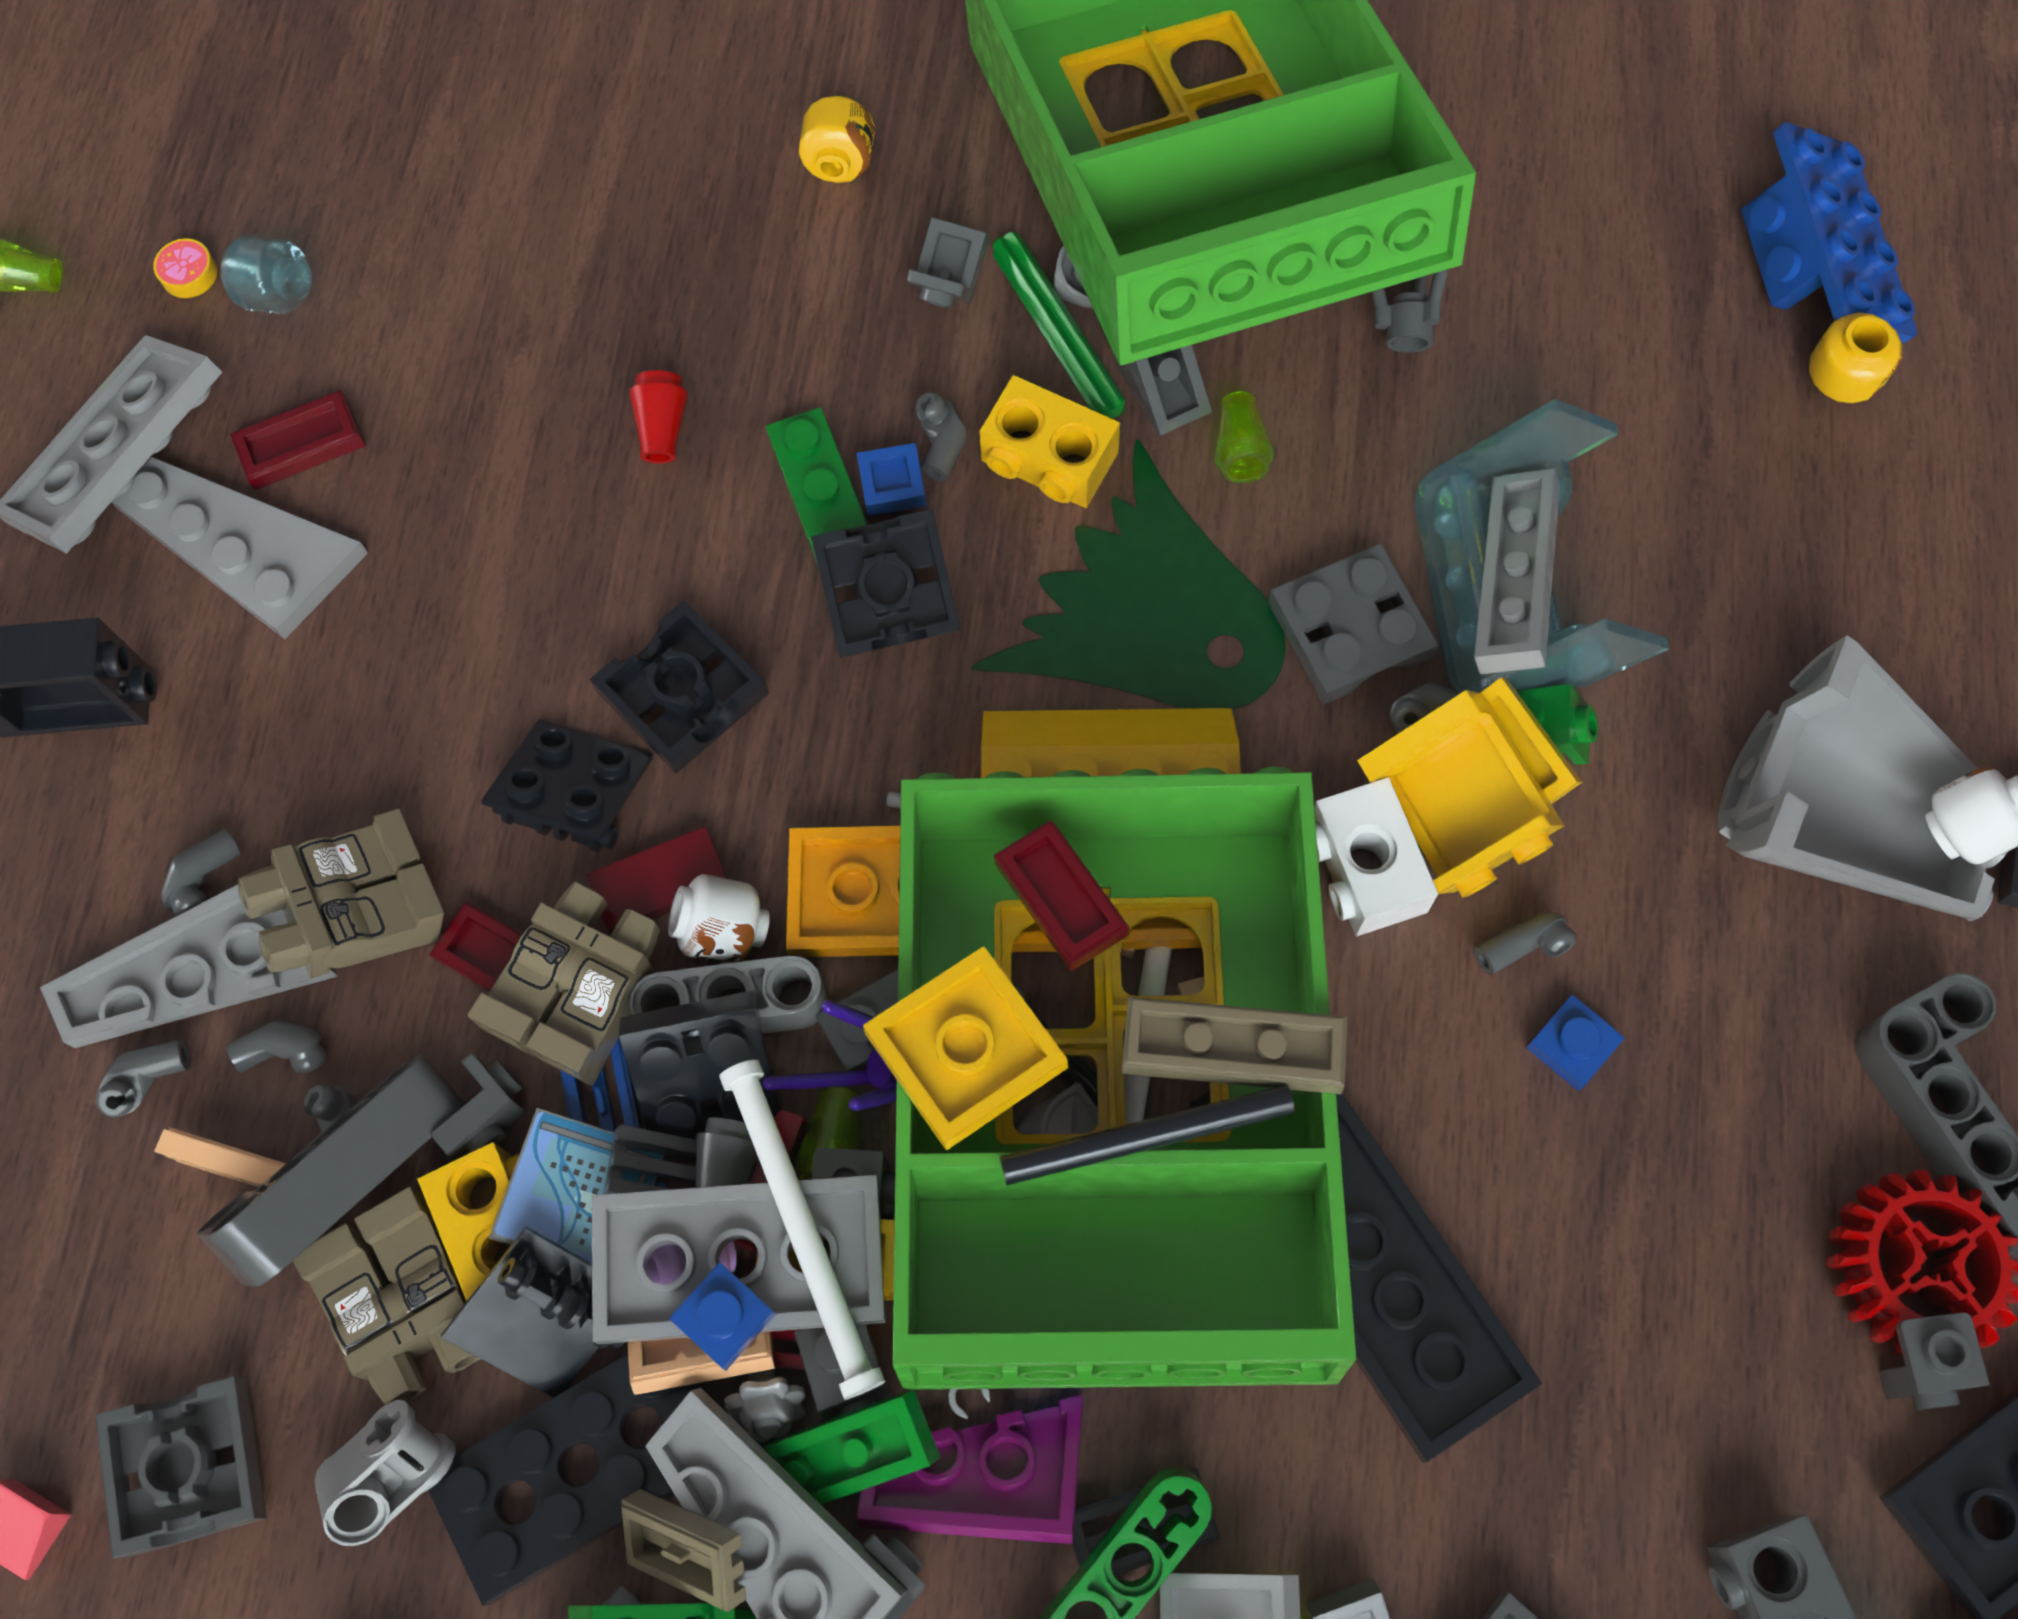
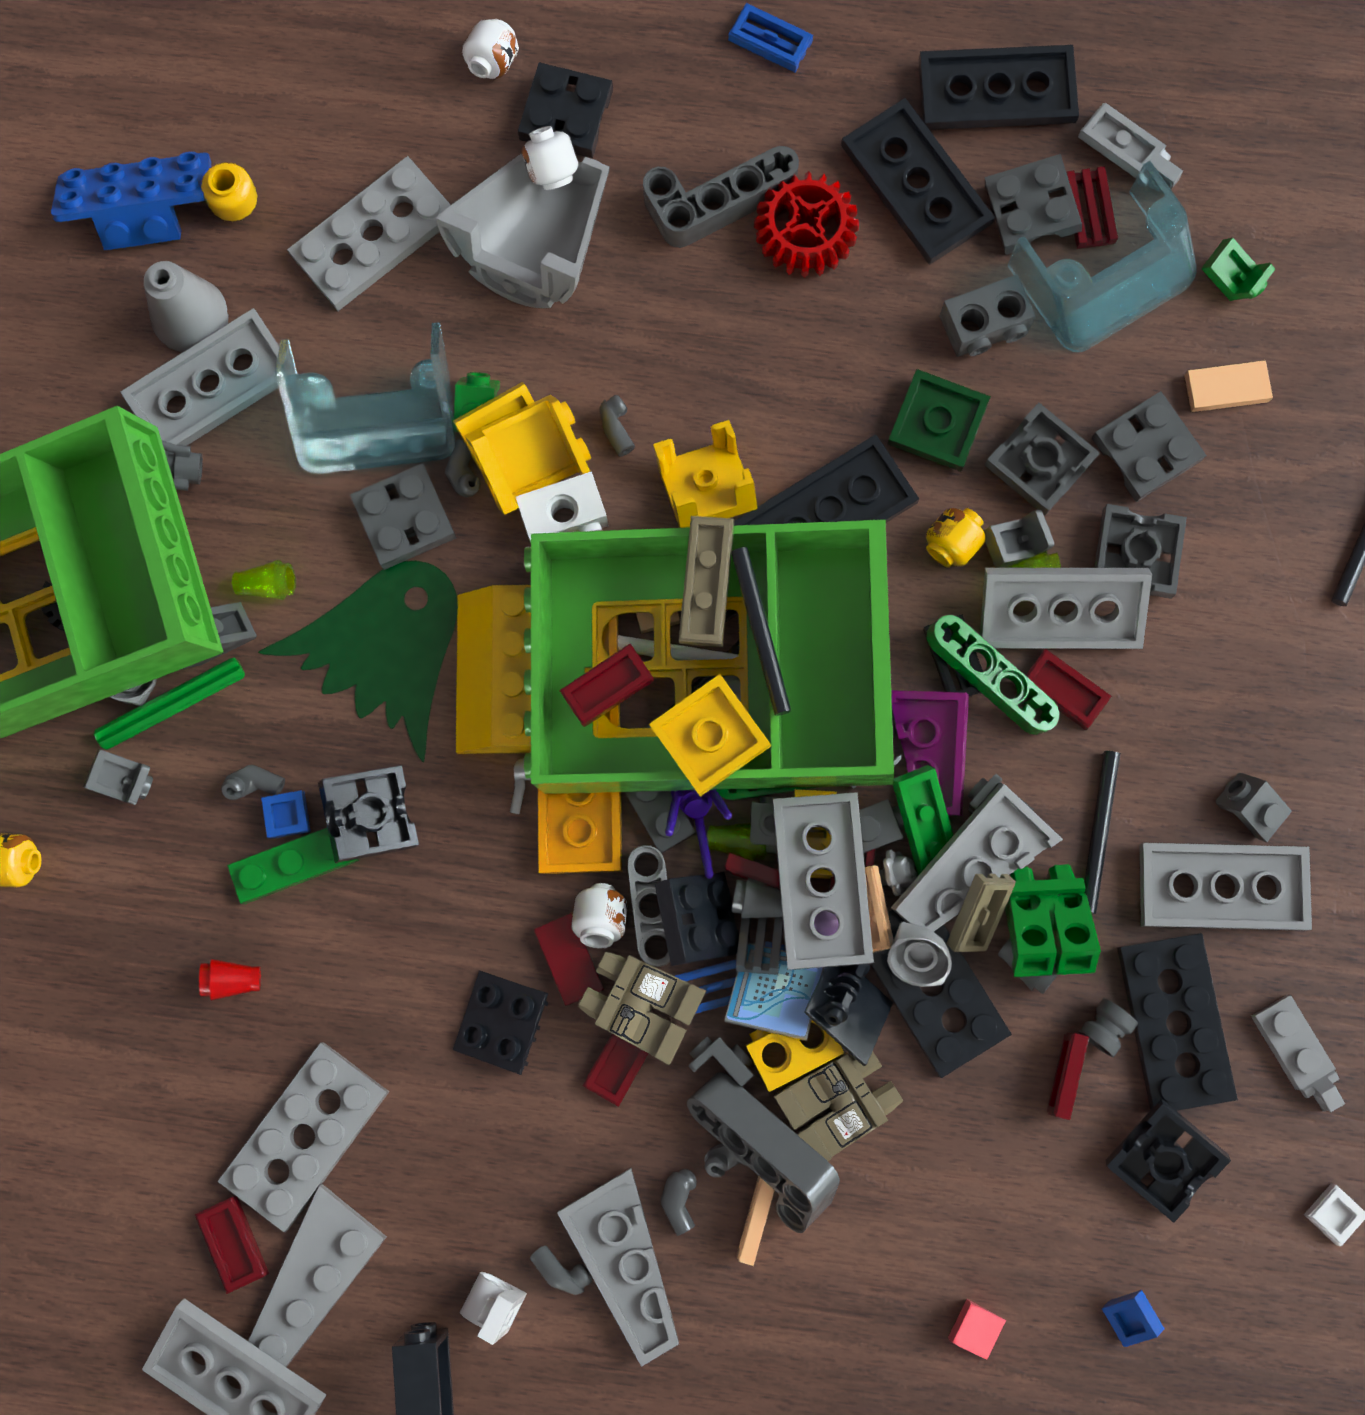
camera: 90 degrees left, 10 degrees up
(136, 1072) = (697, 1296): dark grey arm -> none
(153, 774) = (492, 1306): none -> white plate
(177, 1466) = (950, 1226): dark grey brick -> none
(185, 268) = (81, 1349): tile -> none
(265, 274) = (95, 1281): clear light blue head -> none
(344, 899) = (588, 1175): dark tan hips -> none
(383, 1471) = (943, 1102): light grey piece -> none
(434, 561) = (274, 1137): none -> light grey plate
(613, 1433) = (919, 956): none -> light grey hat
(674, 677) = (425, 959): black brick -> none
(722, 1316) = (859, 884): blue plate -> none
(802, 1230) = (805, 841): white bar -> none
(1057, 430) = (254, 702): yellow brick -> none
(1361, 1529) = (955, 537): none -> yellow head
(1434, 1084) = (706, 479): none -> yellow panel
(1518, 572) = (380, 408): light grey plate -> none
(1550, 317) = (185, 372): none -> light grey plate
(1575, 1043) = (676, 402): blue plate -> none
(1580, 1505) = (938, 420): none -> dark green plate
(1663, 304) = (182, 306): none -> light grey cone
(1821, 531) = (370, 258): none -> light grey plate
(1939, 1360) = (861, 224): dark grey bracket -> none

